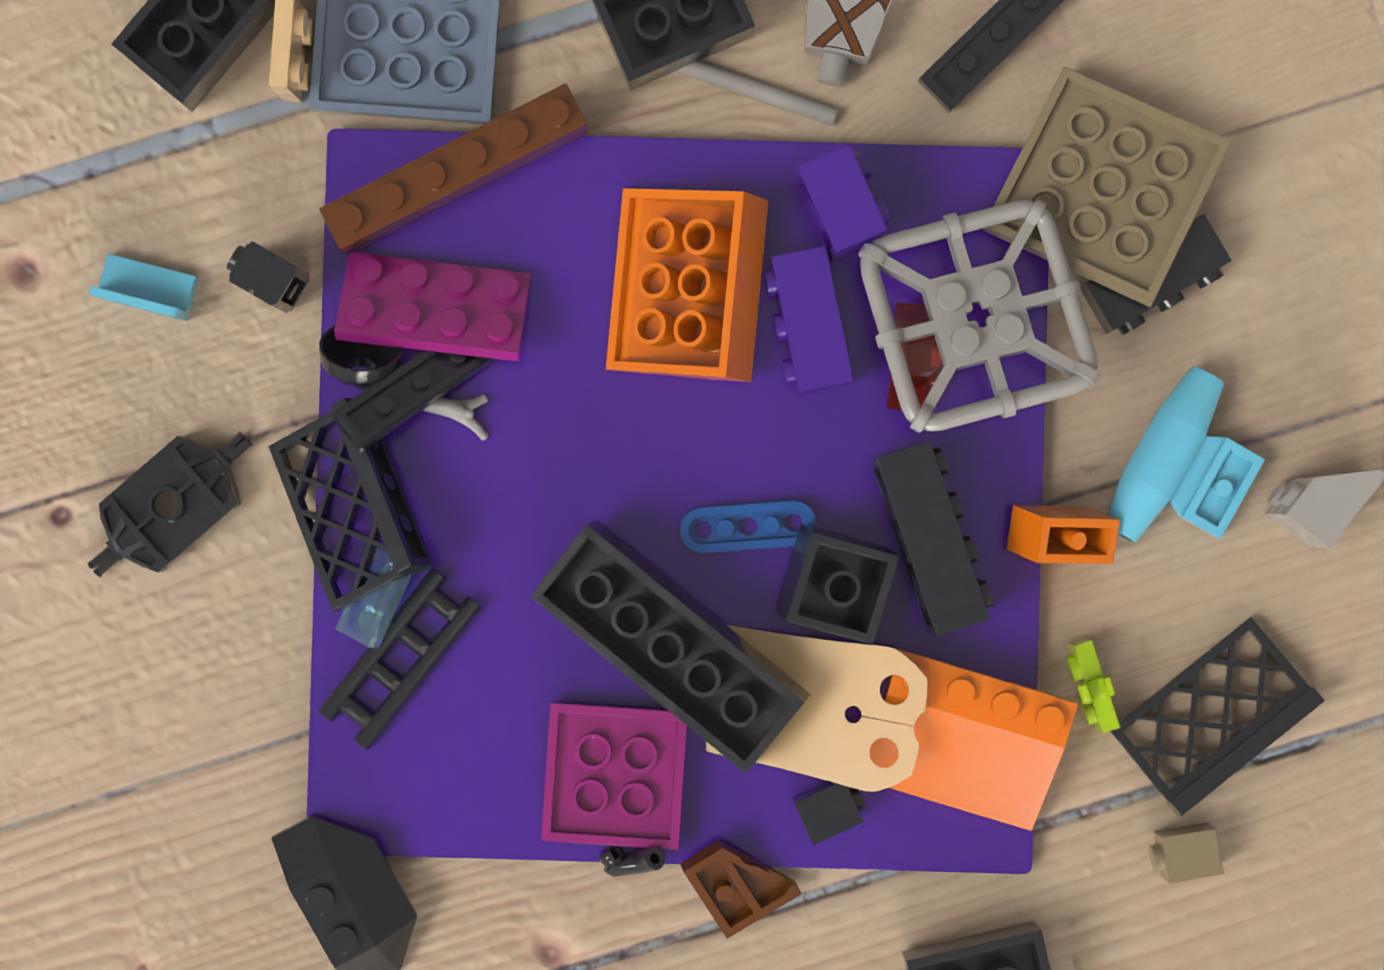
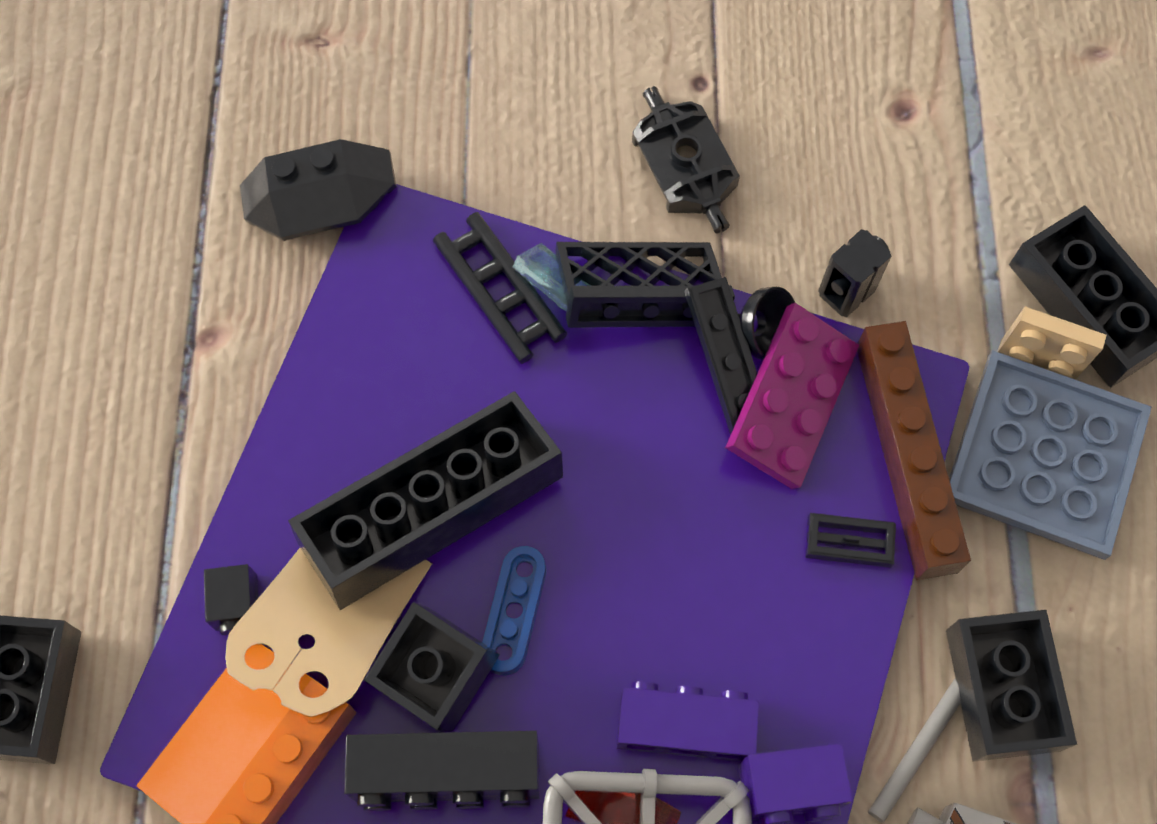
camera: 110 degrees right, 20 degrees down
(146, 287) = (867, 188): medium azure panel -> none
(460, 411) = (694, 394): light grey bar -> none
(577, 246) = (851, 556): none -> black tile
(613, 776) = (333, 422): magenta plate -> none
(632, 862) = (255, 415): black arm -> none
(687, 283) = (753, 623): orange slope -> none
(737, 886) = (198, 500): reddish brown wing -> none

